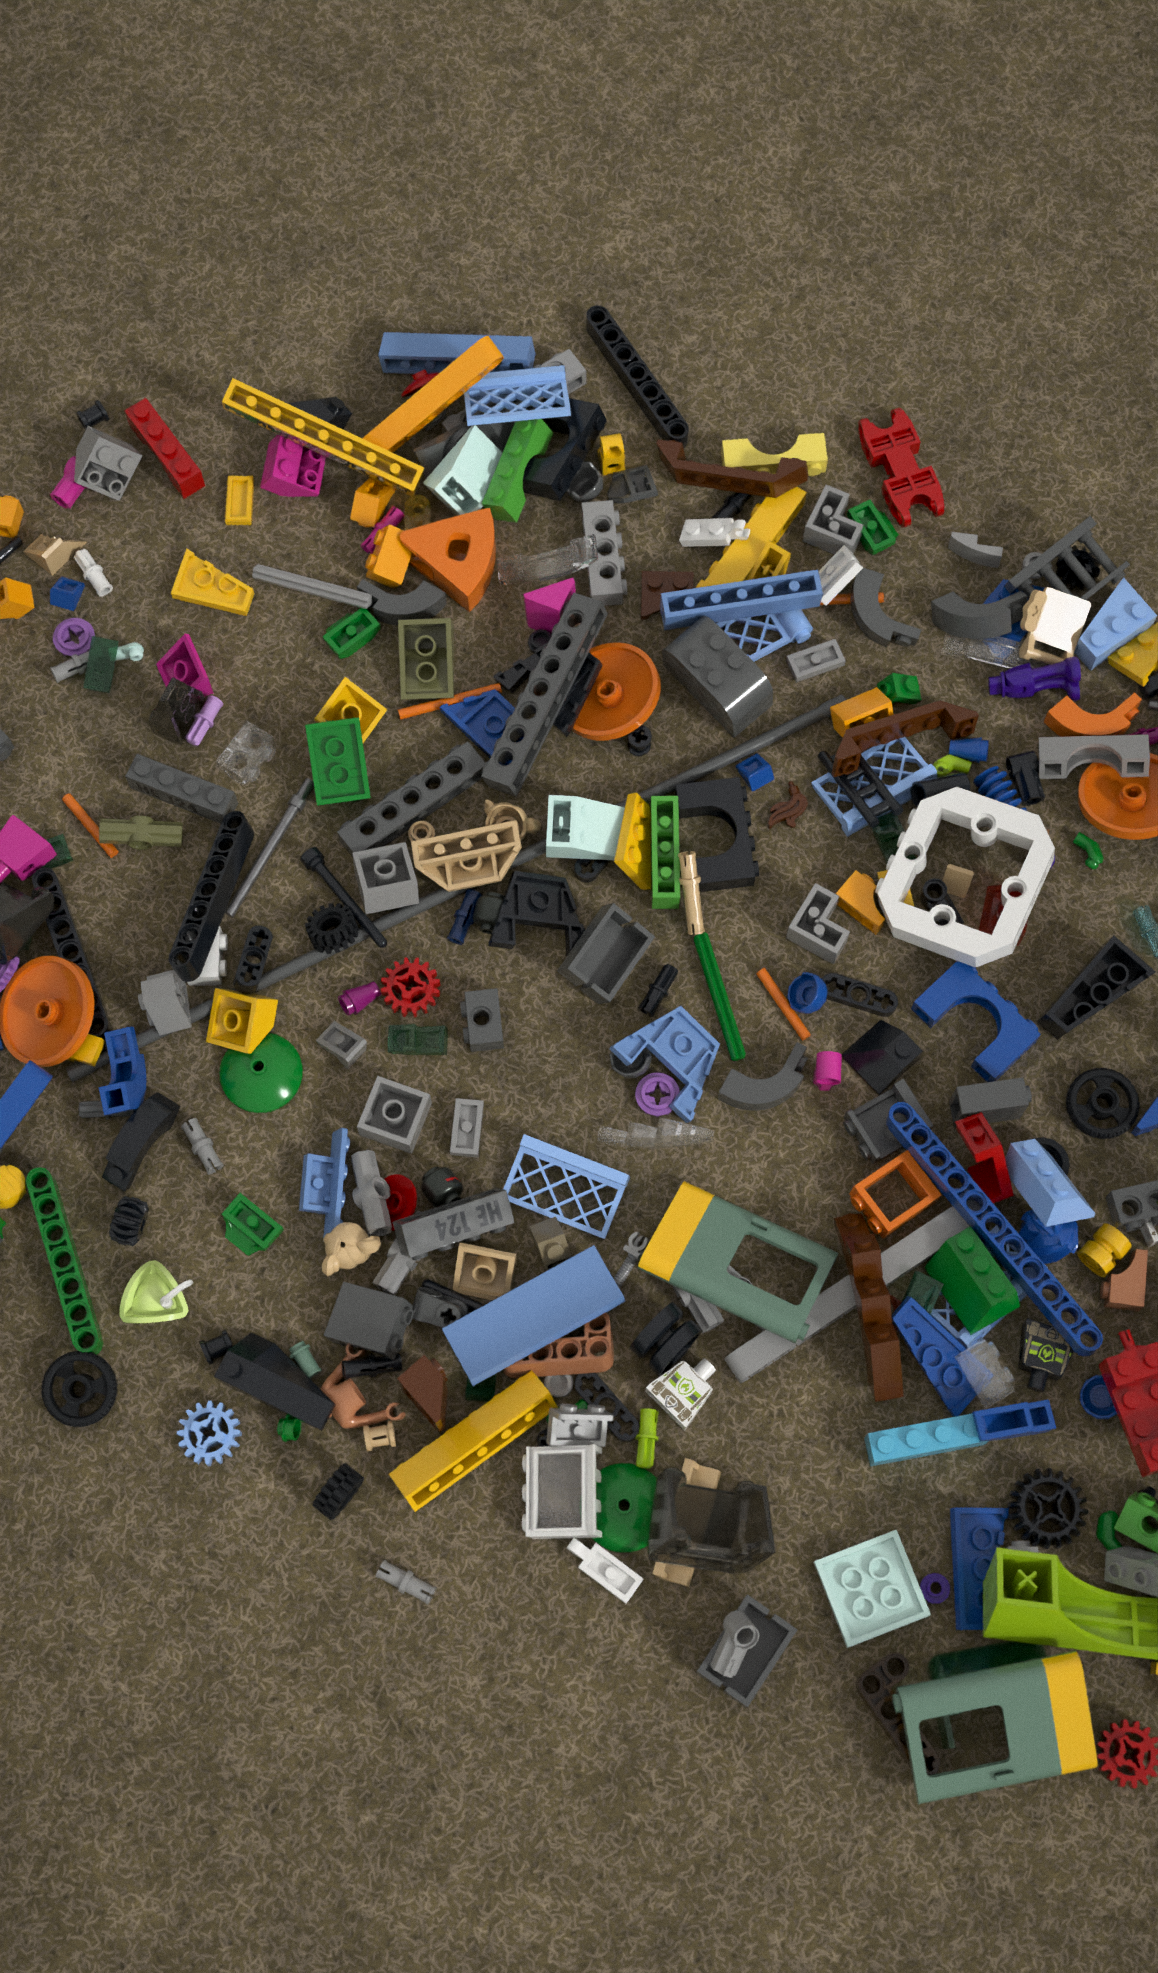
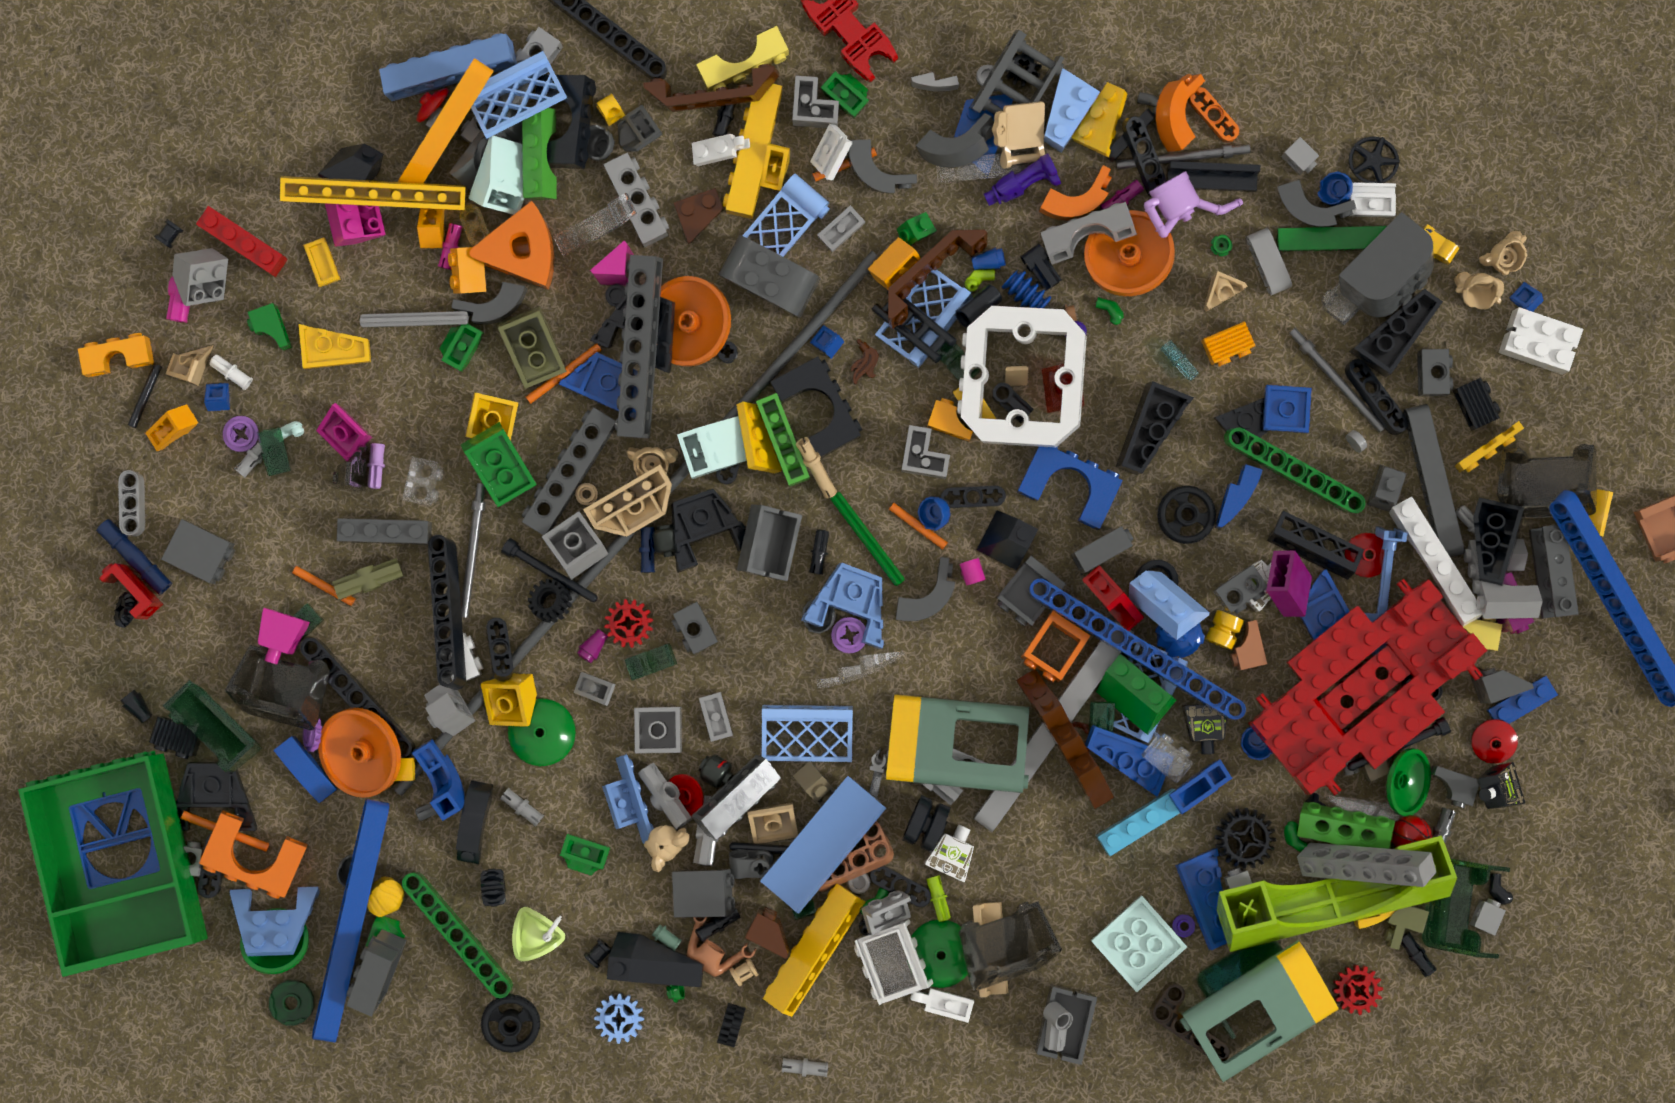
camera: 20 degrees left, 15 degrees up
(155, 536) = (269, 322): none -> green arch
(741, 599) = (765, 207): medium blue brick -> none

